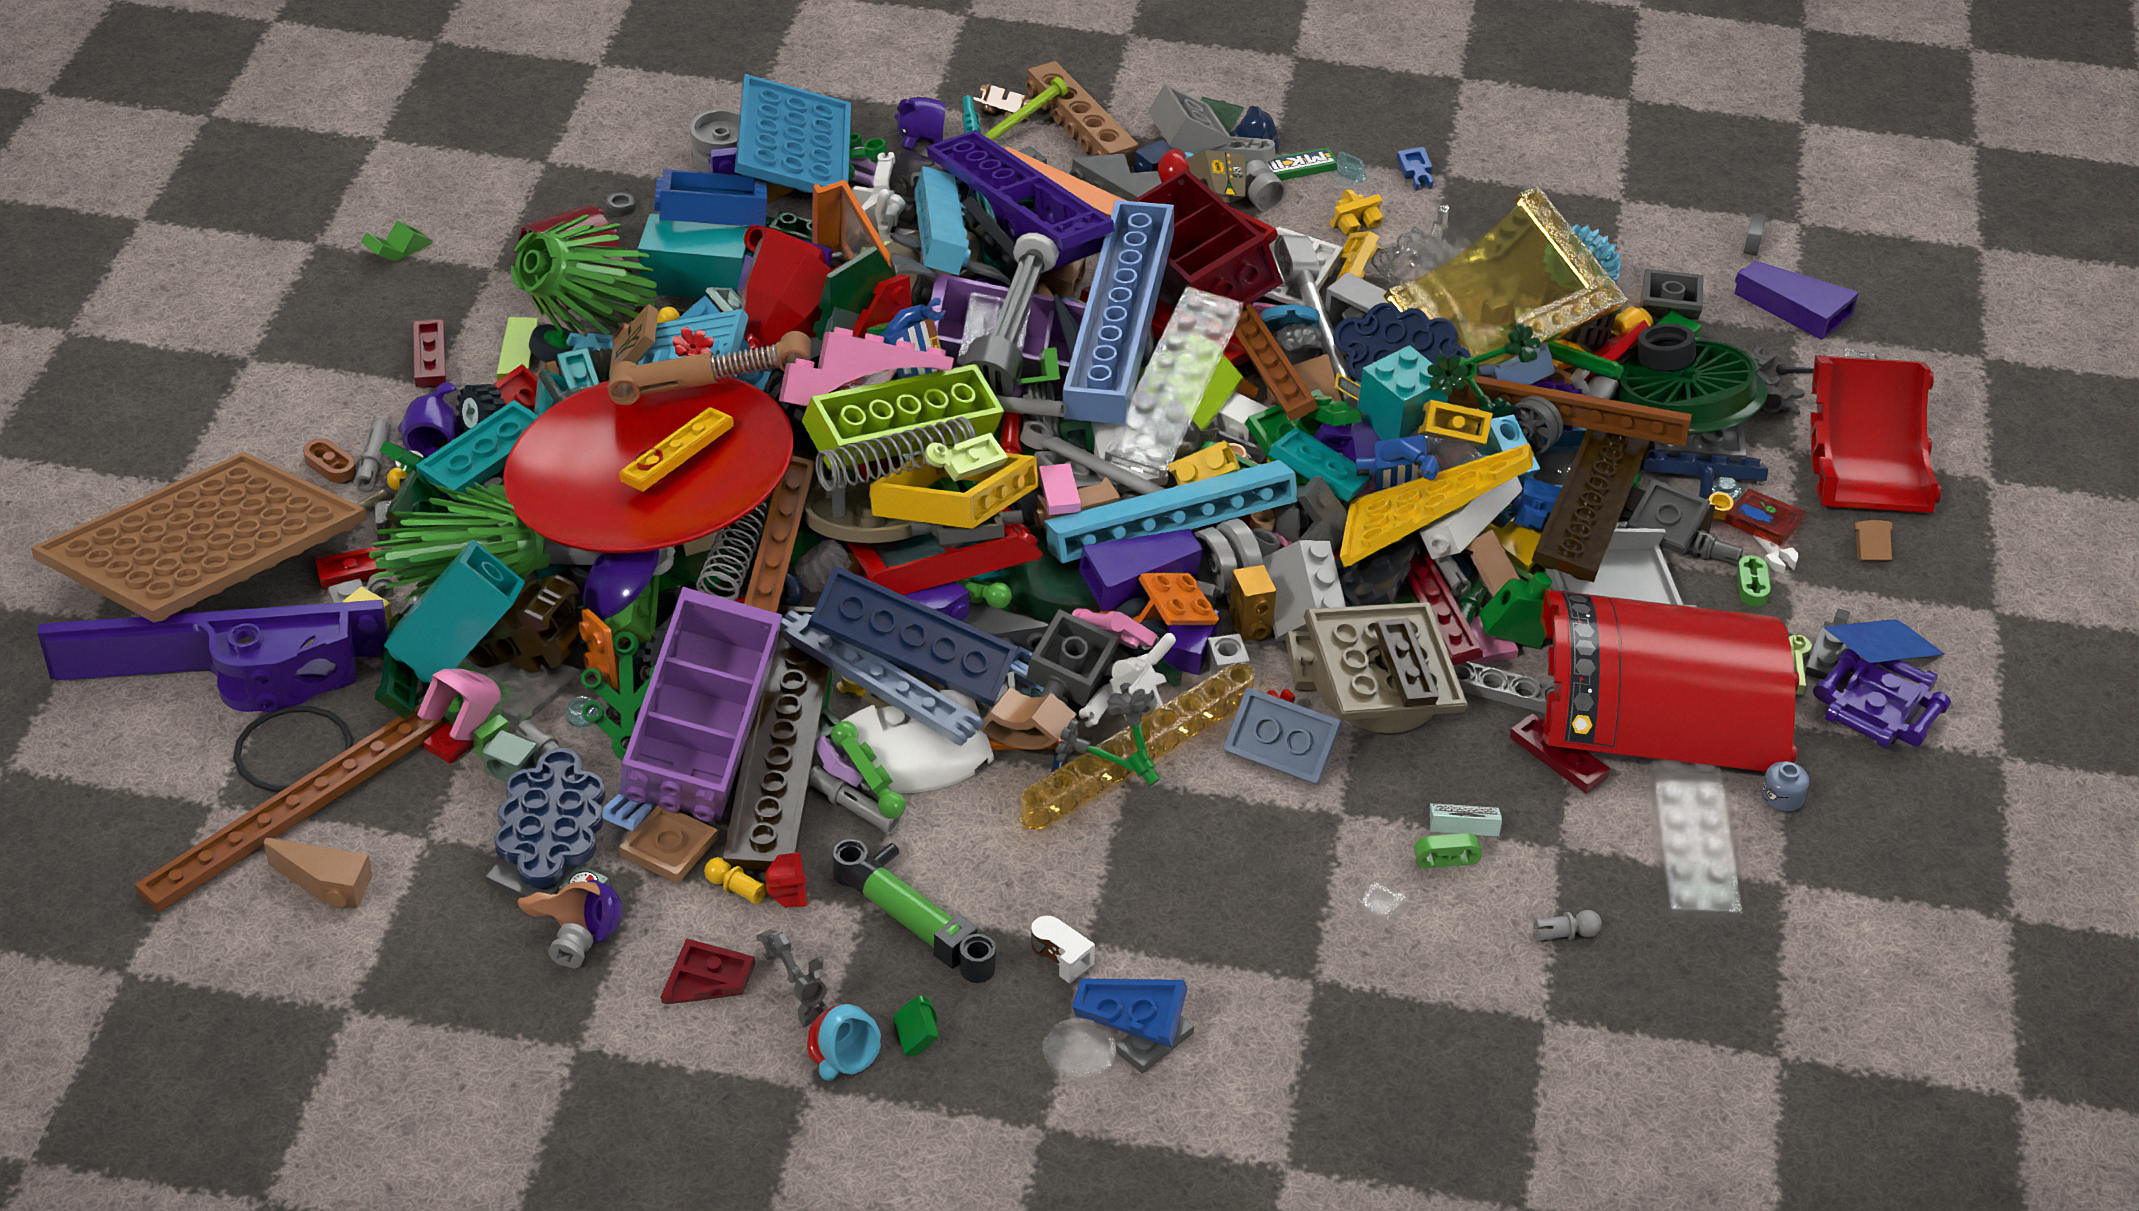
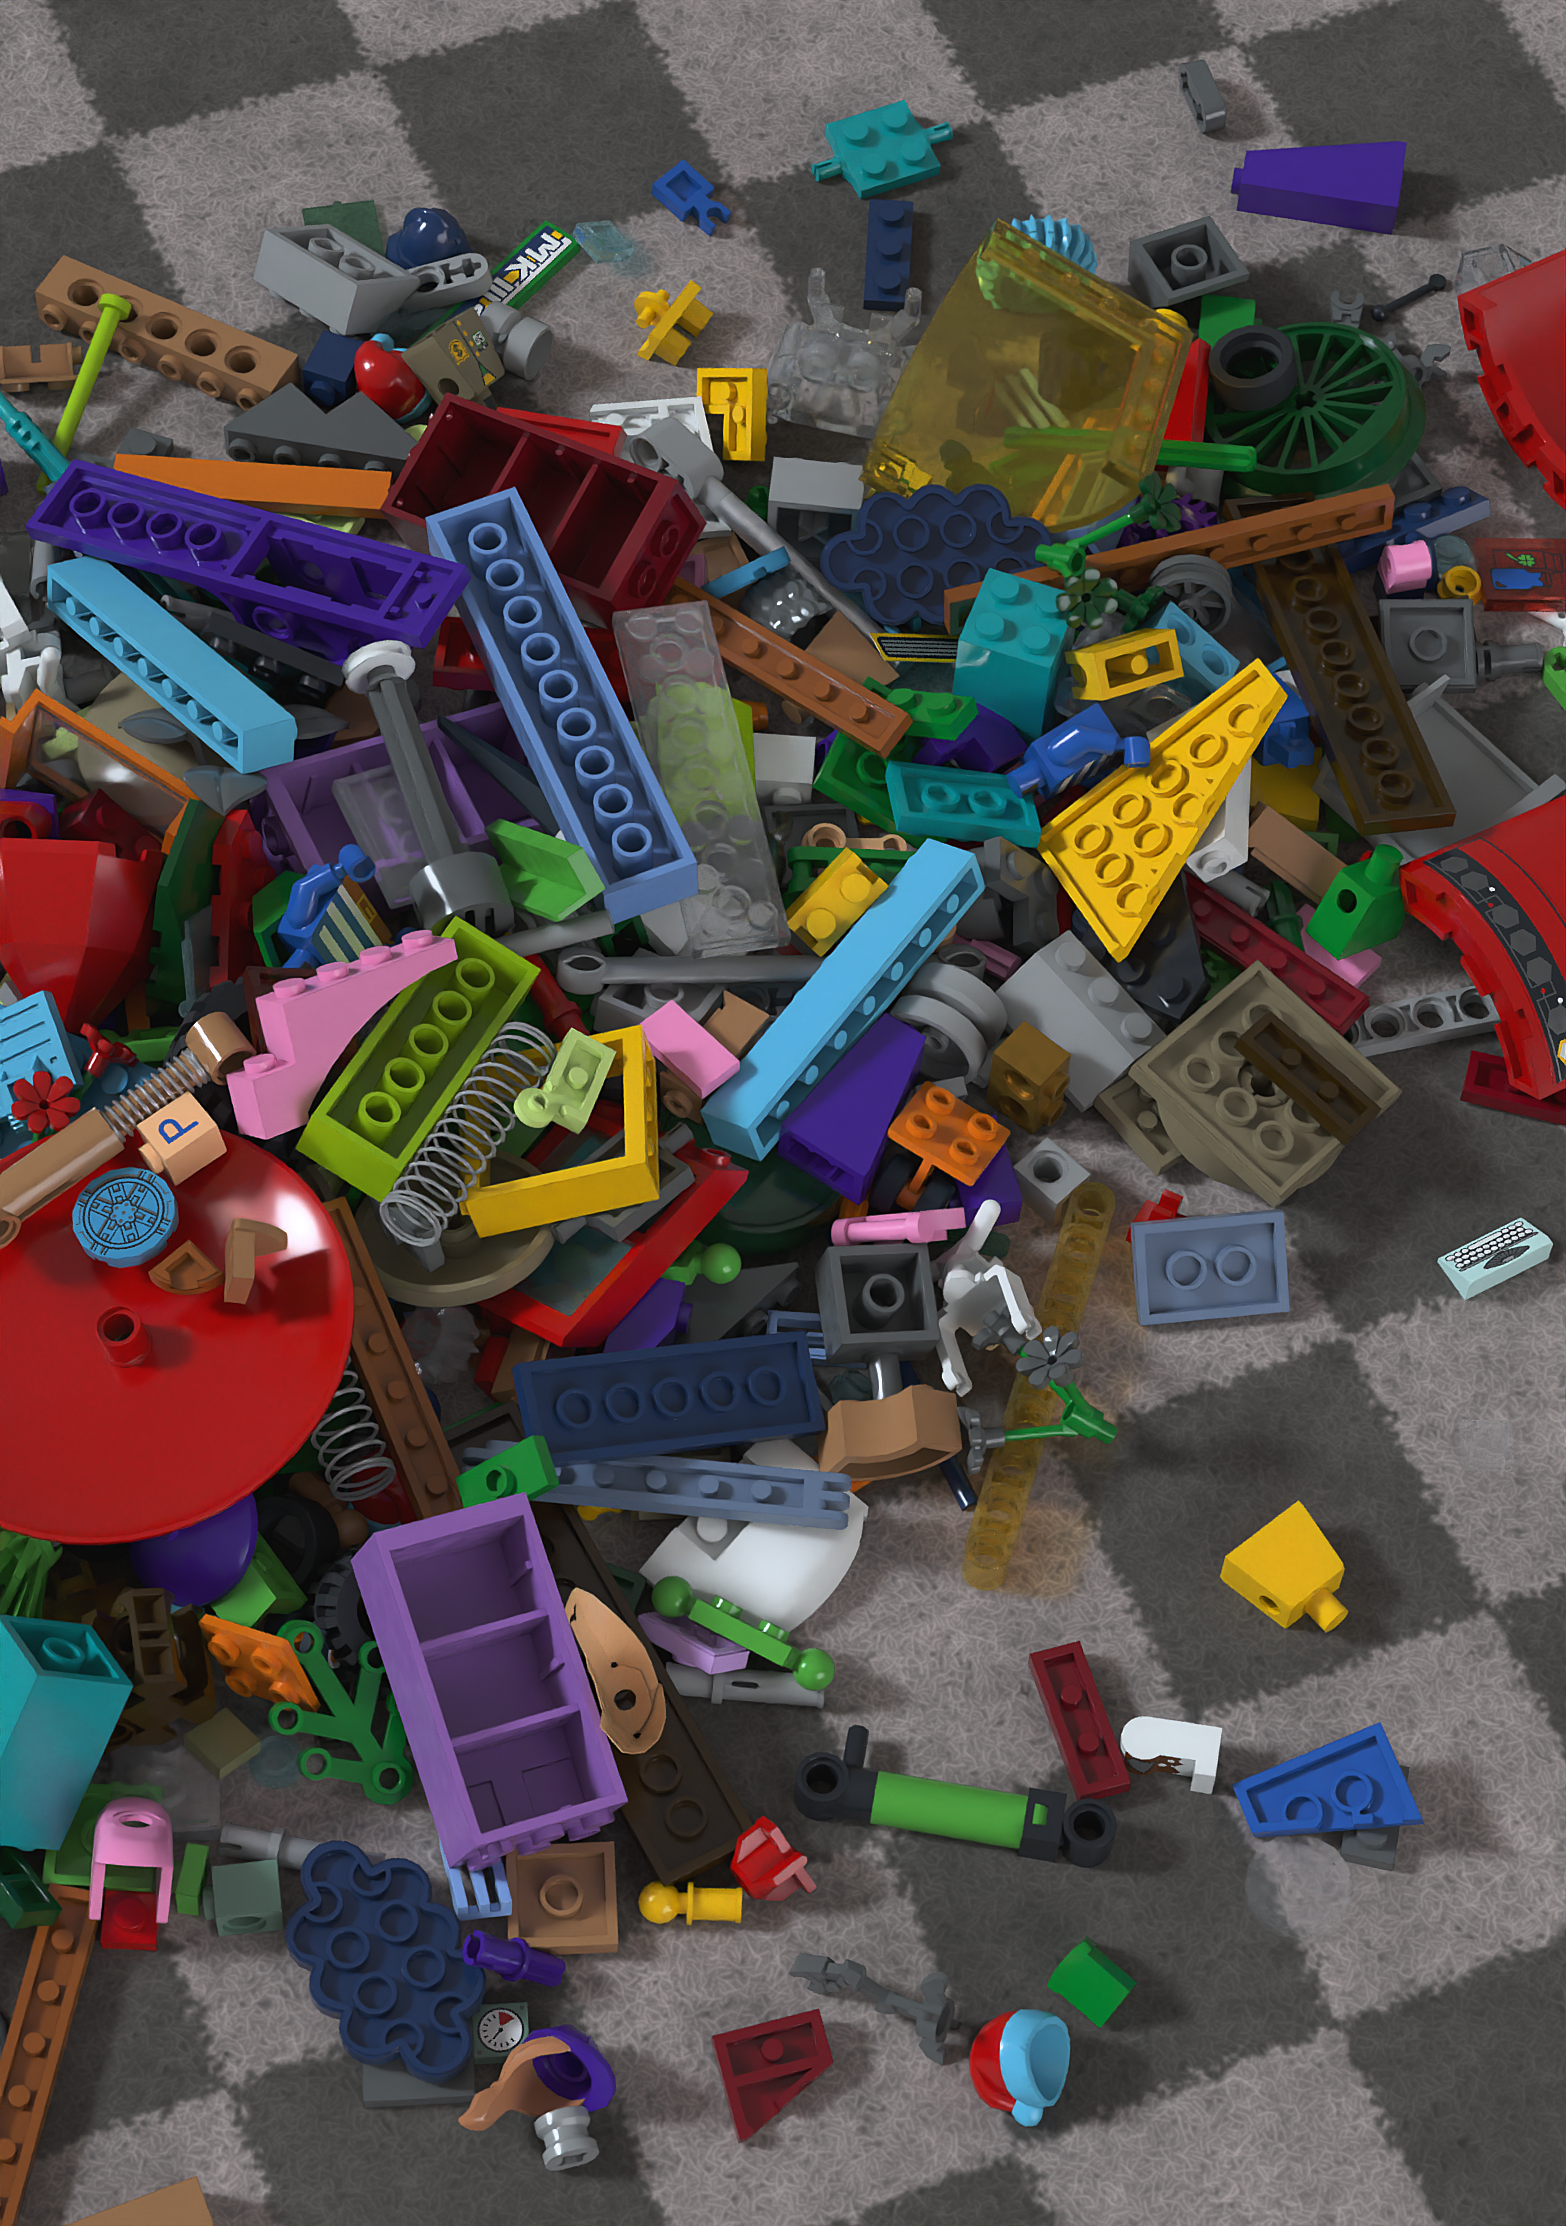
camera: 35 degrees left, 15 degrees up
(557, 683) = (222, 1743): none -> olive tile
(614, 849) = (512, 1959): none -> dark purple axle
(677, 448) = (134, 1288): yellow tile -> none
(692, 412) = (125, 1217): none -> dark azure tile
(699, 446) = (187, 1272): none -> dark orange tile
(731, 442) = (245, 1242): none -> medium nougat tile
(745, 388) = (180, 1139): none -> light nougat brick
(768, 733) = (609, 1640): none -> light nougat piece
(797, 618) = (516, 1470): none -> green plate
(1021, 907) = (1079, 1722): none -> dark red plate
(1203, 897) = (1288, 1571): none -> yellow torso
(1447, 850) = (1515, 1322): bright green beam -> none
(1554, 182) = (881, 149): none -> teal plate
(1684, 473) = (1403, 572): none -> bright pink leg

